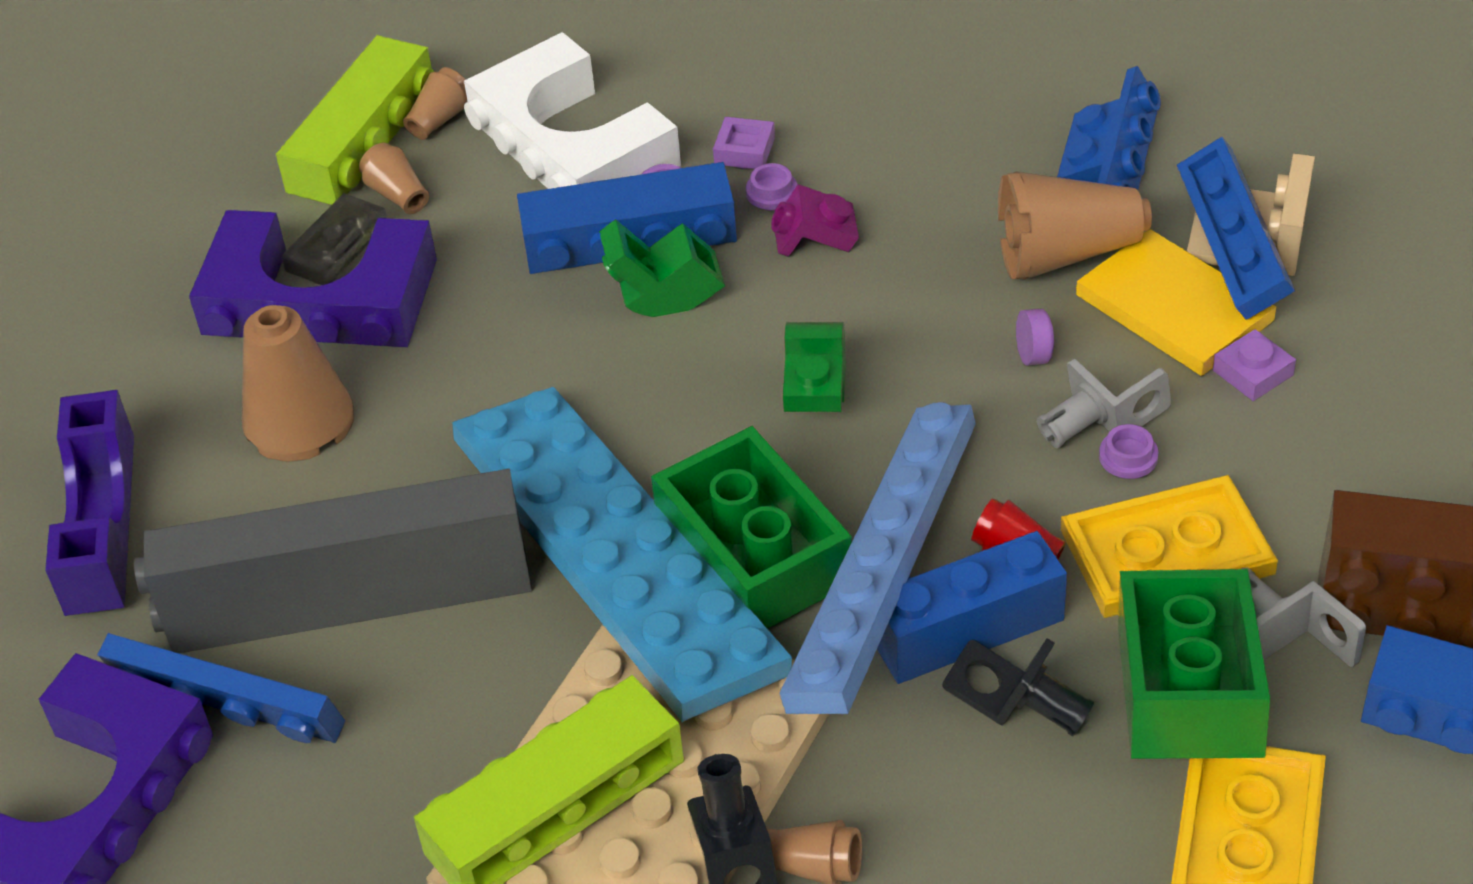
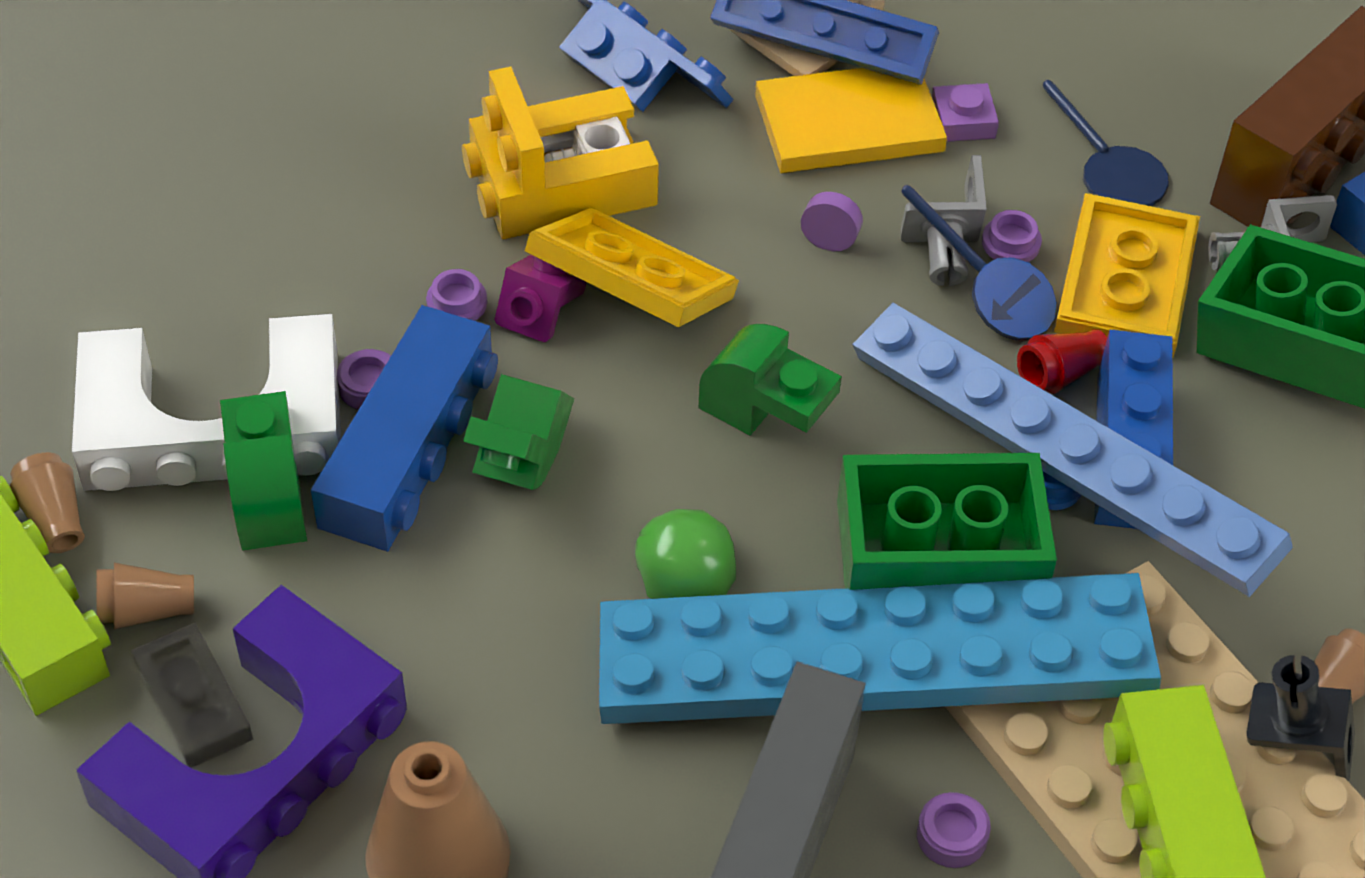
camera: 65 degrees left, 5 degrees up
(498, 671) = (953, 830): none -> medium lavender tile
(512, 163) = (262, 471): none -> green brick
(631, 413) = (685, 555): none -> bright green hair
(744, 142) = (374, 285): medium lavender plate -> none
(873, 251) = (632, 266): none -> yellow tile
(941, 160) = (556, 157): none -> yellow brick
(1017, 688) = (1242, 440): black bracket -> none
(1061, 474) = (1007, 291): none -> blue piece
(1065, 221) = (721, 128): medium nougat cone -> none
(1296, 499) = (1116, 170): none -> dark blue piece

